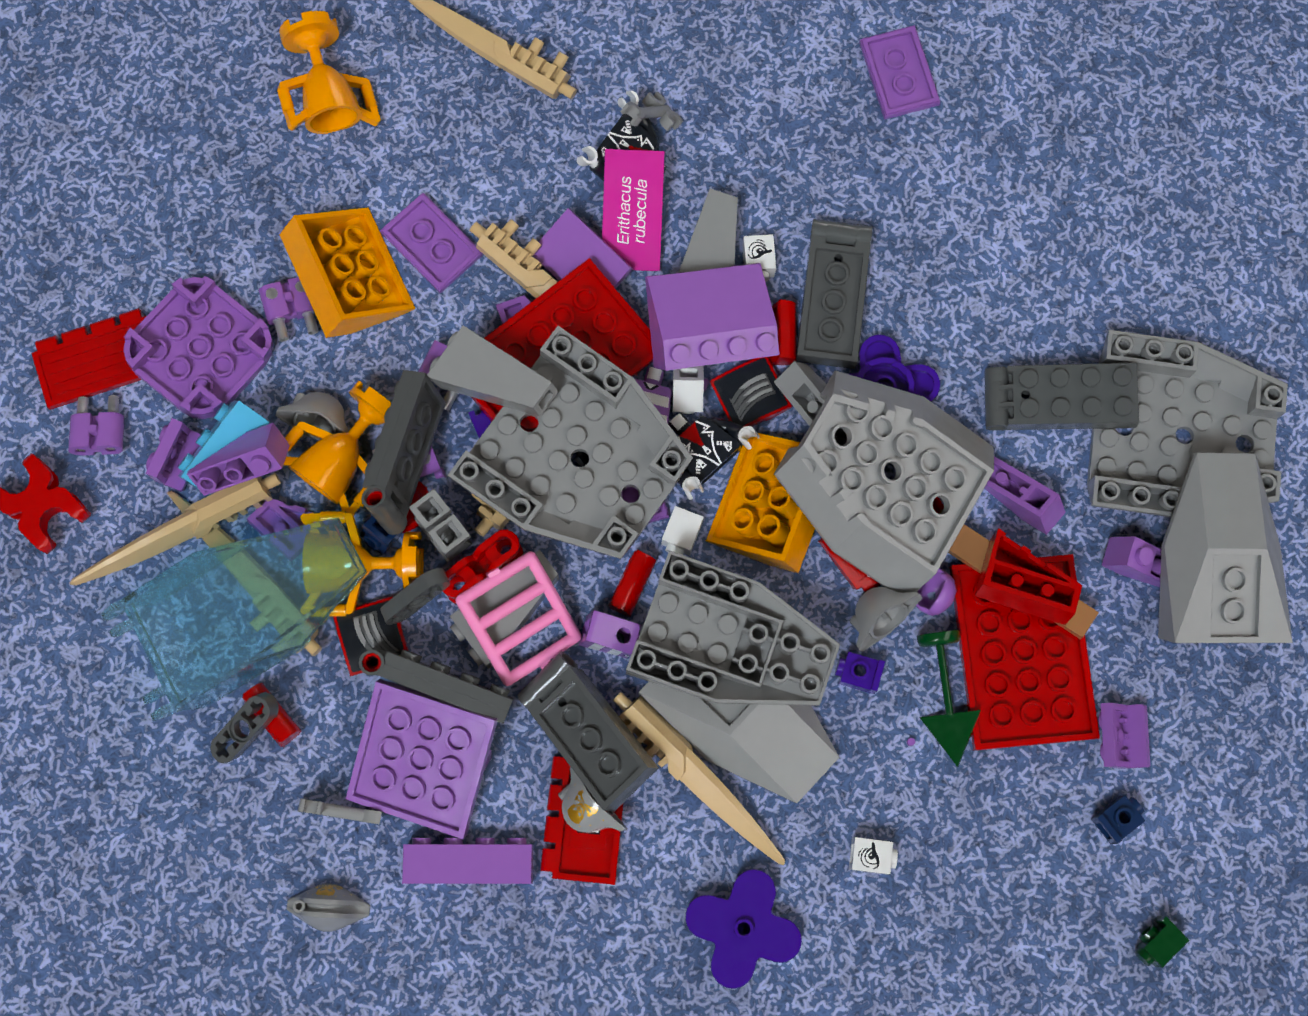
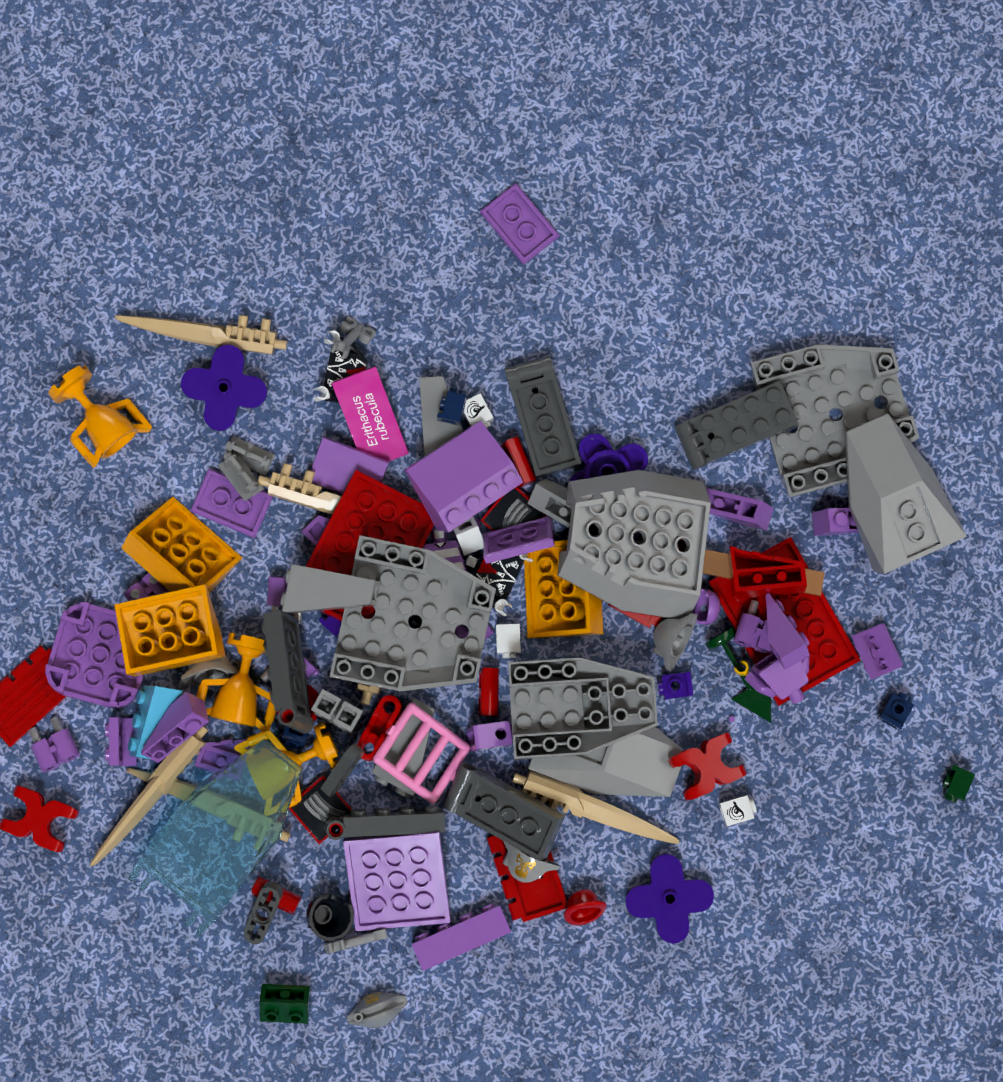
camera: 20 degrees left, 5 degrees up
(219, 849) = (284, 1003): none -> dark green brick
(287, 348) = (168, 631): none -> light orange slope
(320, 768) = (329, 917): none -> black helmet
(454, 213) = (240, 476): none -> light grey hinge
(474, 197) = (254, 457): none -> light grey hinge
(497, 122) = (242, 389): none -> dark purple plant
(633, 893) = (583, 908): none -> red hat
(733, 234) = (452, 407): none -> dark blue brick
(745, 416) = (518, 539): none -> medium lavender tile
(858, 785) = (707, 766): none -> red piece
(986, 649) = (753, 631): none -> medium lavender piece
(997, 708) = (773, 680): none -> medium lavender torso
(1021, 670) = (783, 638): none -> medium lavender slope

